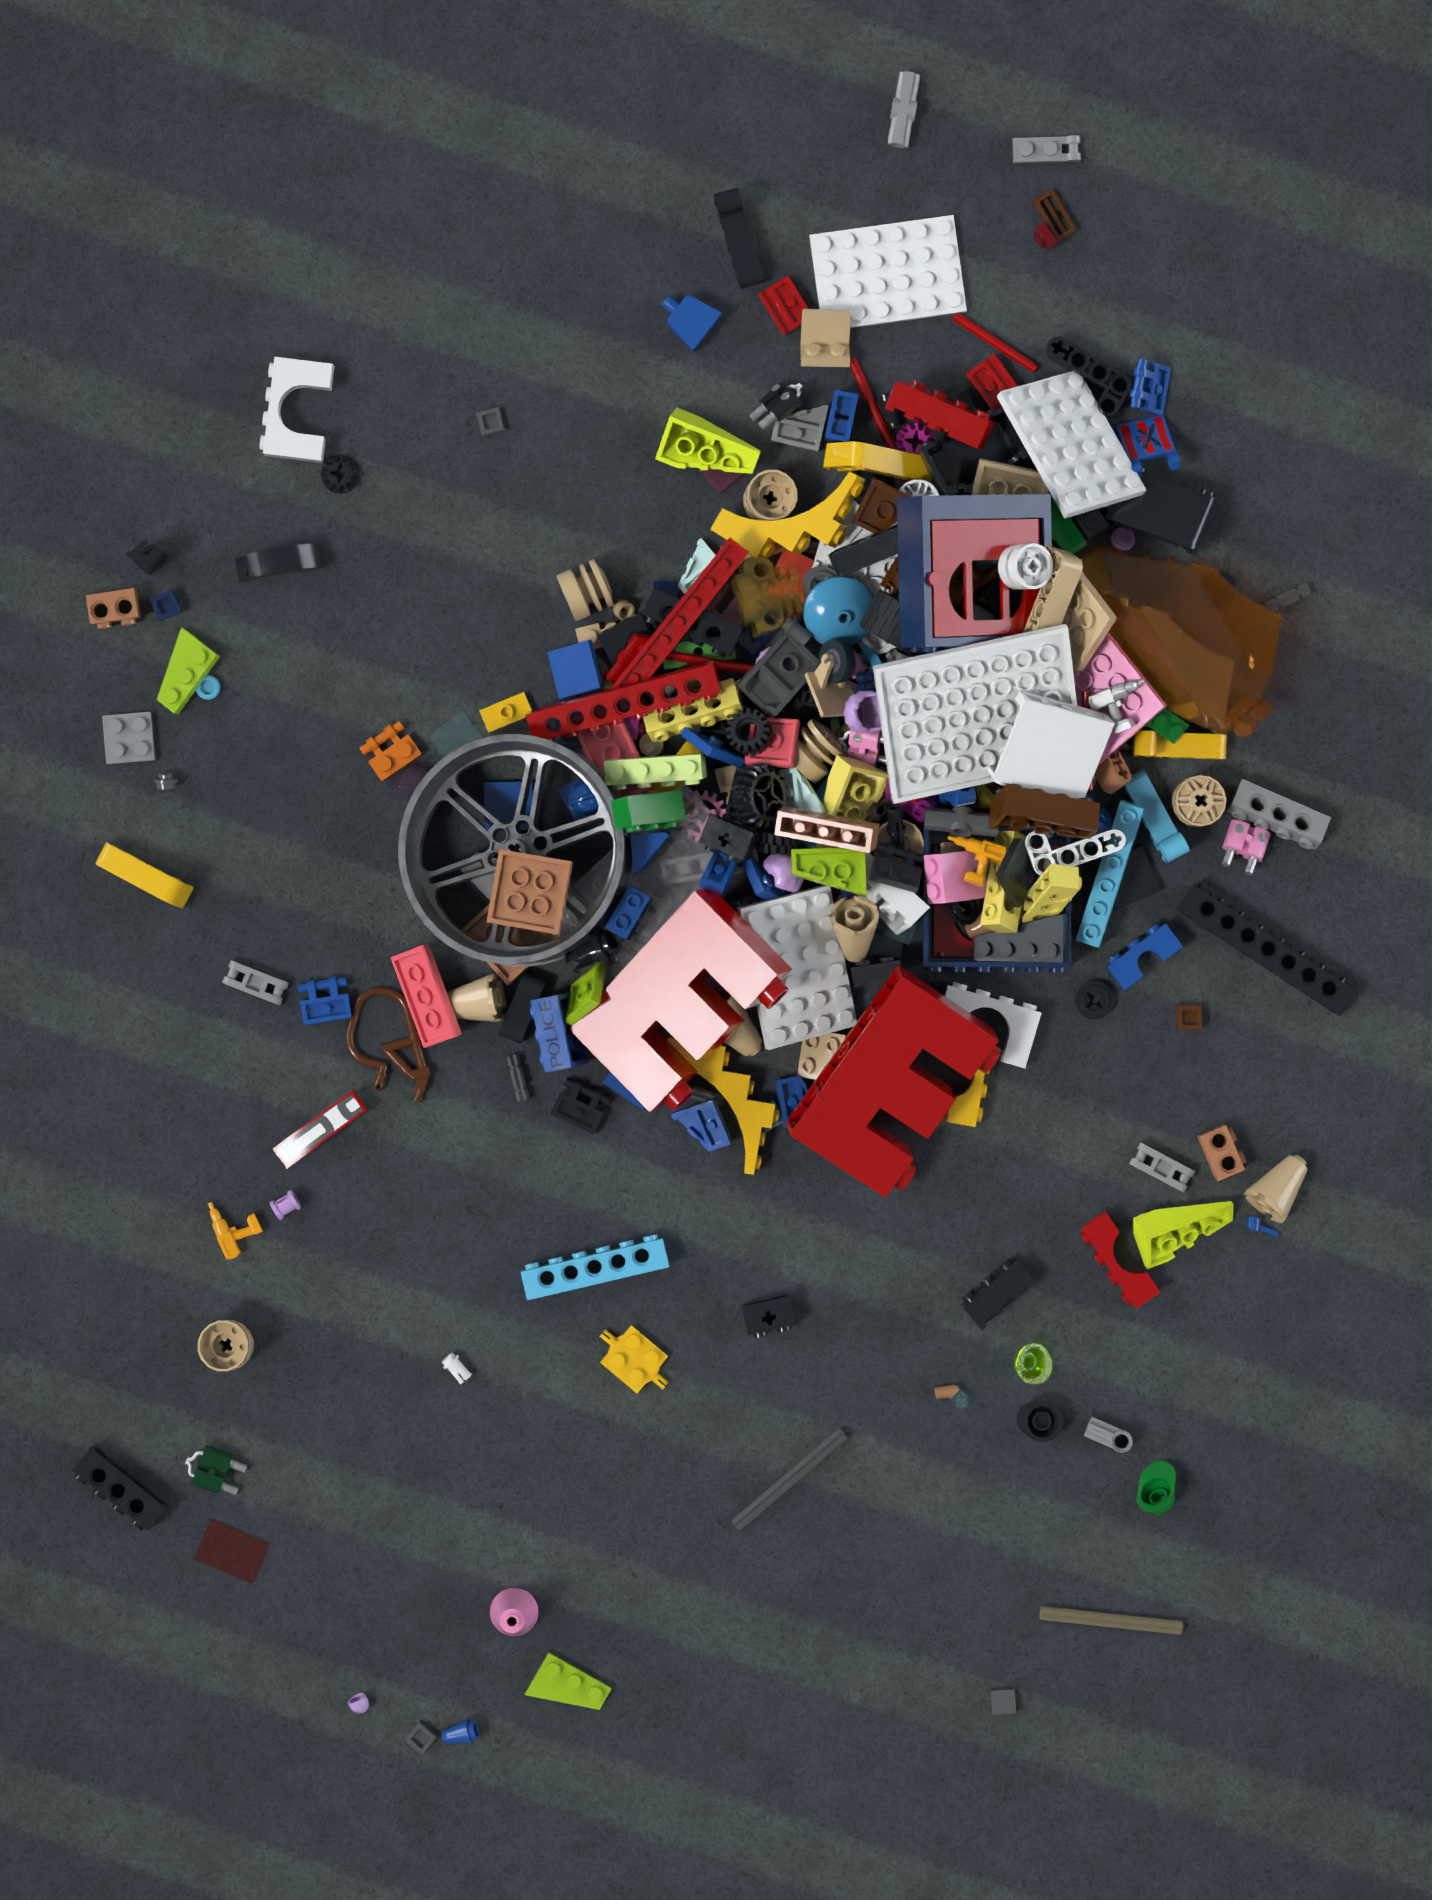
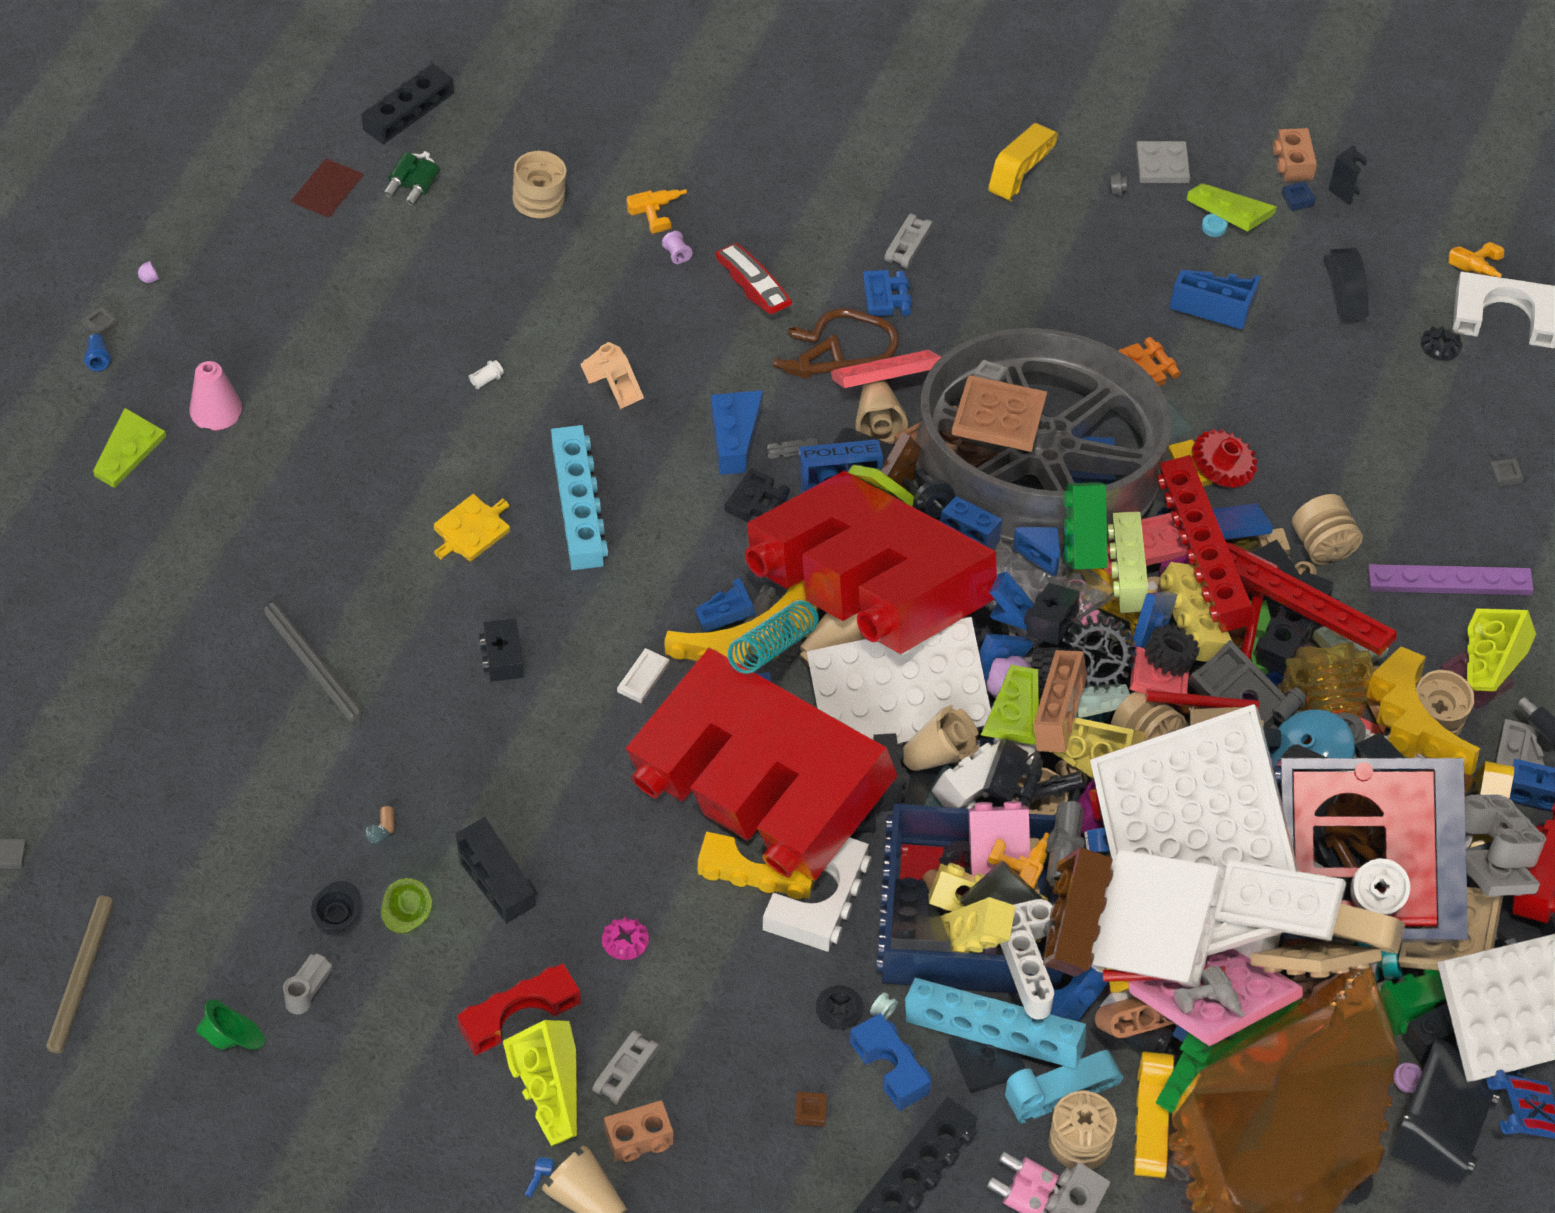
camera: 90 degrees right, 35 degrees down
(240, 441) = (1476, 261): none -> light orange piece
(311, 686) = (1215, 298): none -> blue wedge
(461, 1240) = (612, 364): none -> light nougat tile
(463, 901) = (990, 371): none -> light grey tile
(500, 695) = (1224, 458): none -> red gear
(507, 1132) = (734, 428): none -> blue wedge
(553, 978) = (902, 460): none -> reddish brown wing
(618, 479) = (1450, 579): none -> medium lavender plate
(779, 1190) = (643, 675): none -> white tile
(800, 706) = (1197, 700): none -> red bar
(808, 1098) = (747, 637): none -> teal piece
(923, 449) = (1515, 839): none -> light grey beam
(969, 462) = (1497, 880): none -> light grey plate
(1044, 1168) = (620, 948): none -> dark pink gear
(1049, 649) = (1279, 899): none -> white tile
(1093, 964) = (884, 1006): none -> light aqua bush

